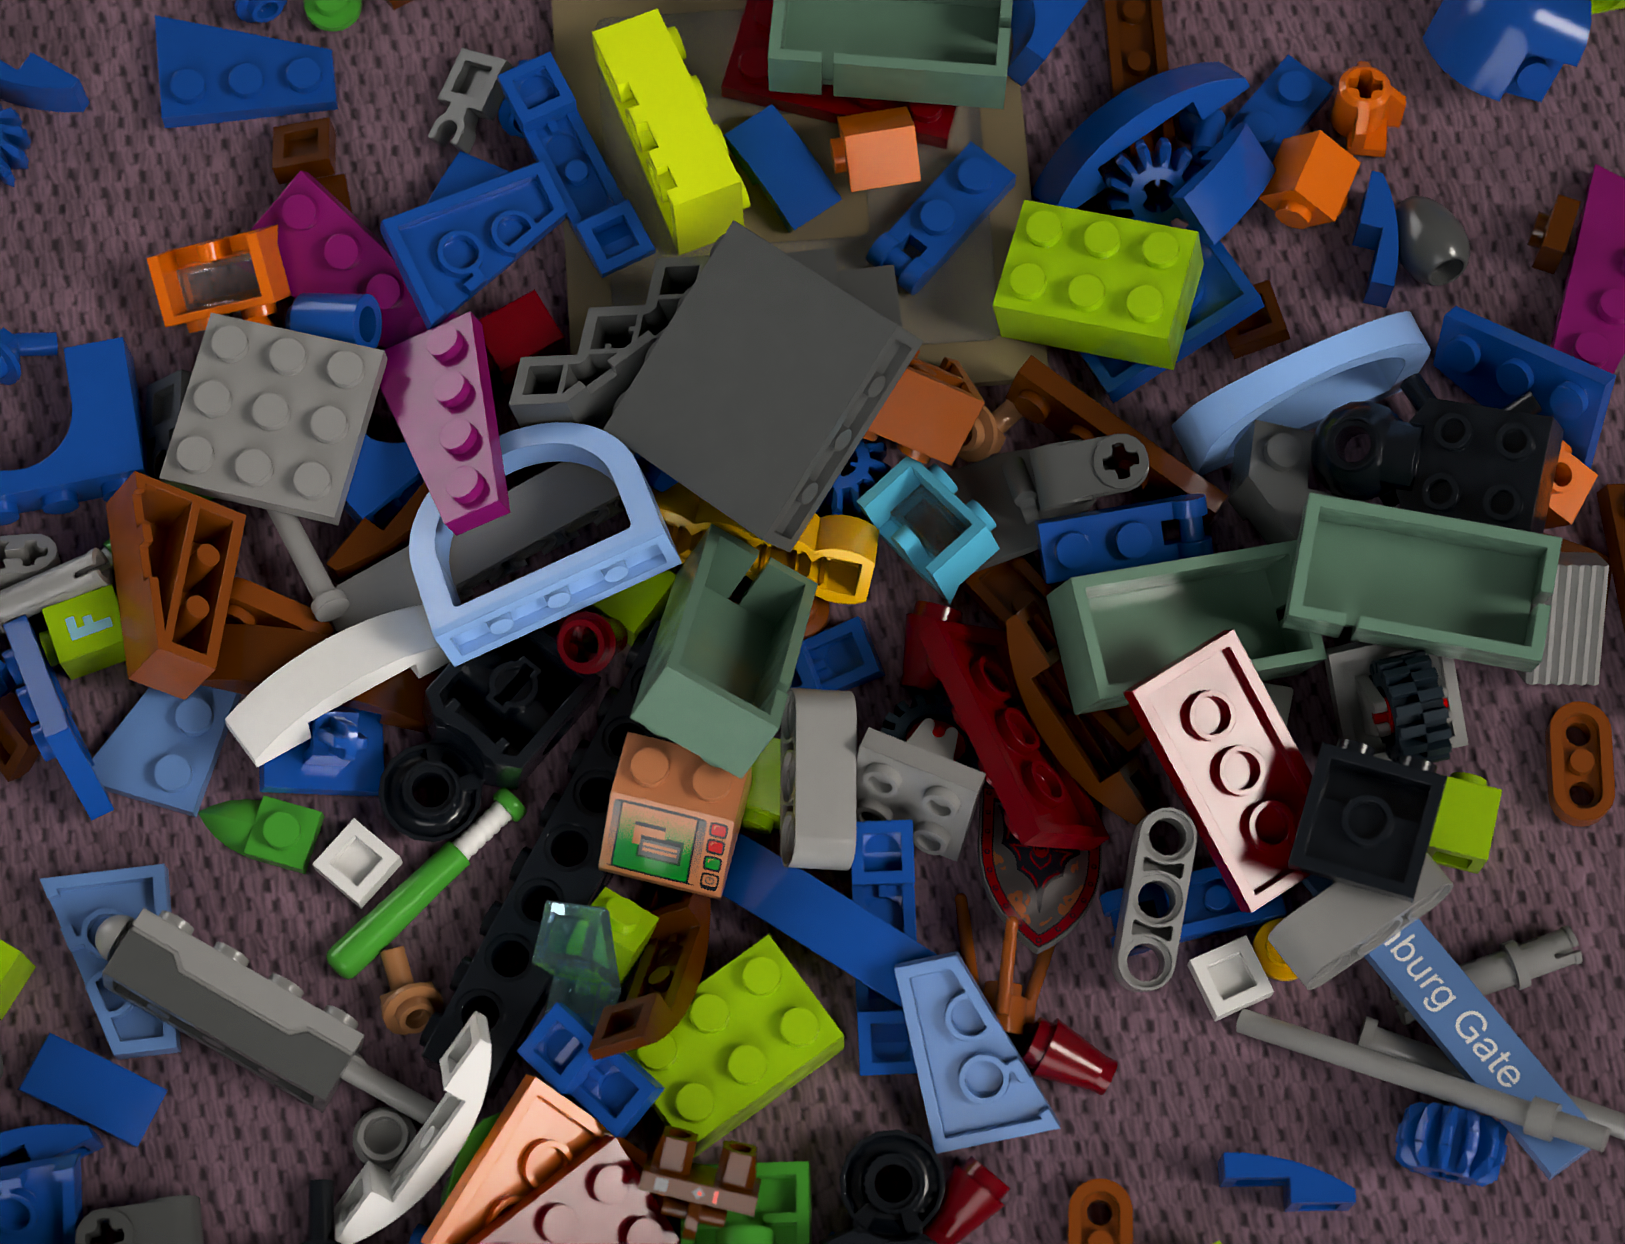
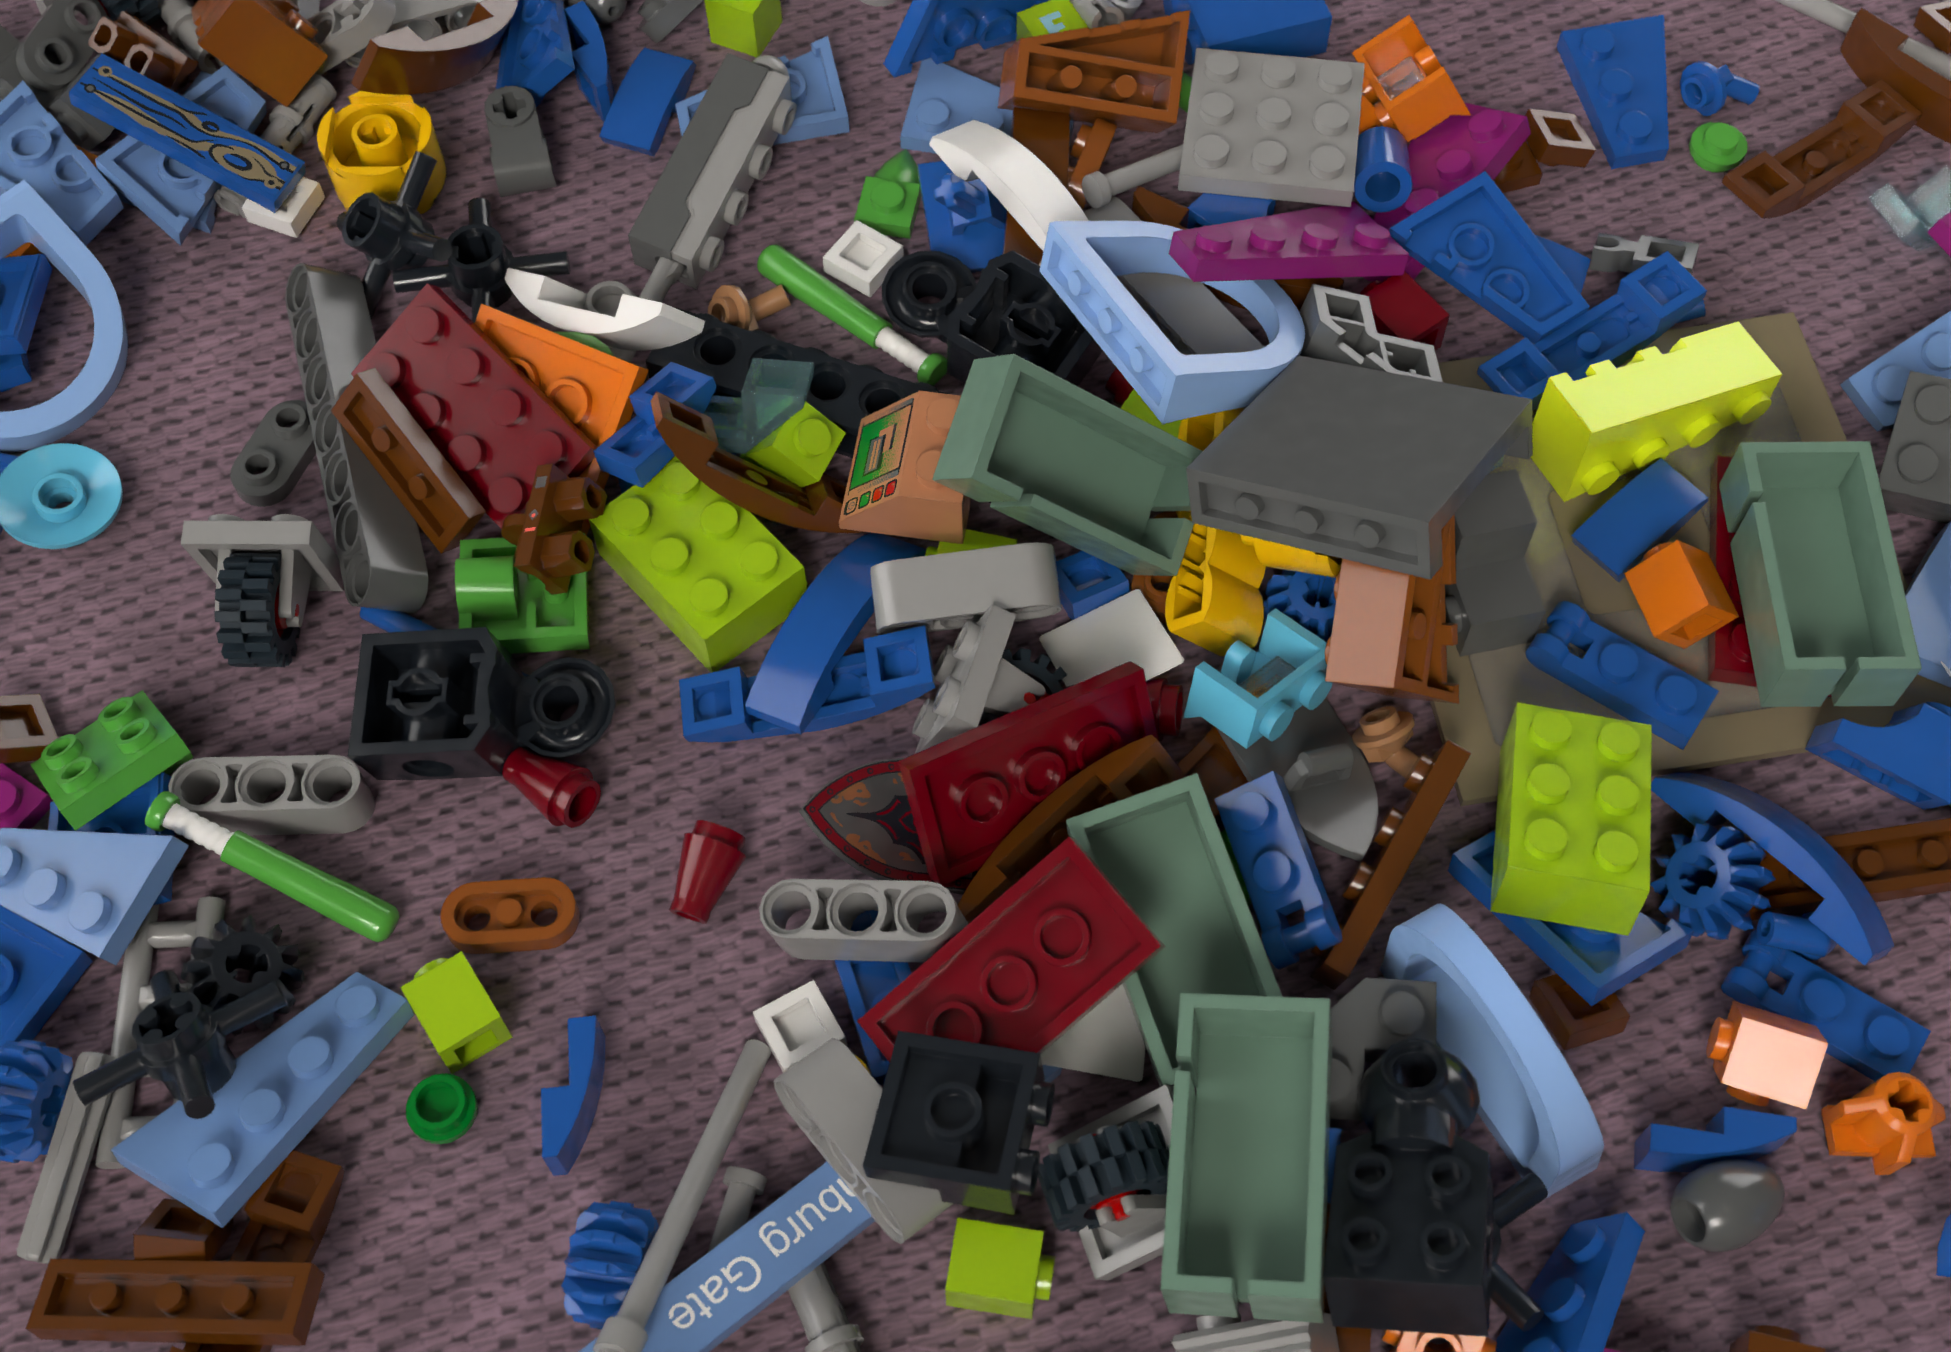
camera: 85 degrees right, 10 degrees down
(590, 641) = (1082, 366): dark red cone -> none
(872, 655) = (1110, 637): none -> white sticker
(964, 1059) = (692, 762): medium blue wing -> none
(1003, 994) = (758, 801): dark orange plant -> none
(1075, 472) = (1345, 814): dark grey piece -> none
(1226, 186) = (1732, 947): blue slope -> none

